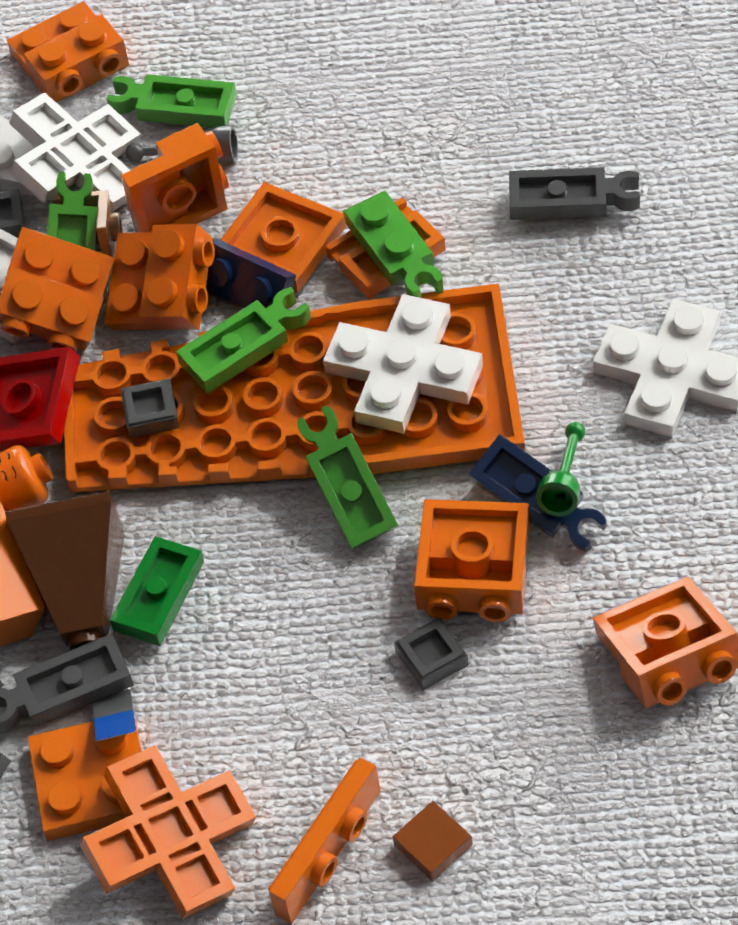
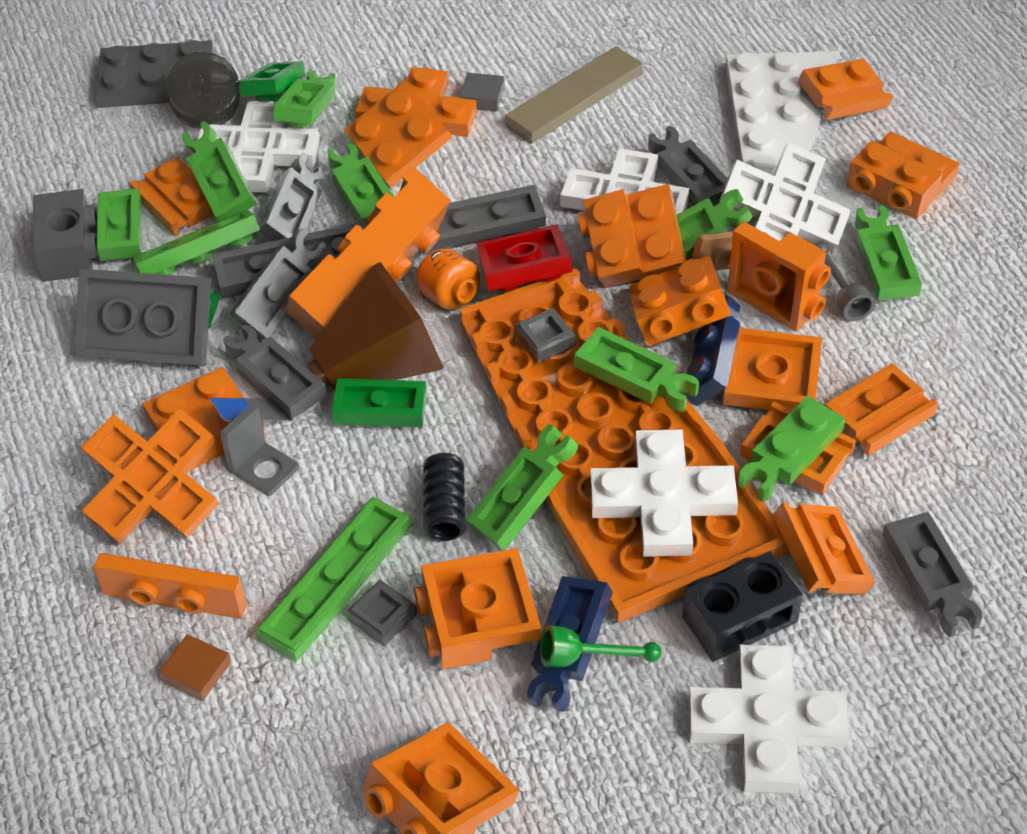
camera: 65 degrees right, 5 degrees down
(160, 728) = (246, 449): none -> dark grey bracket
(315, 558) = (444, 497): none -> black piece
(367, 164) = (882, 408): none -> orange plate
(370, 688) = (333, 579): none -> bright green tile
(516, 262) = (823, 549): none -> orange plate
(552, 345) = (746, 613): none -> black brick

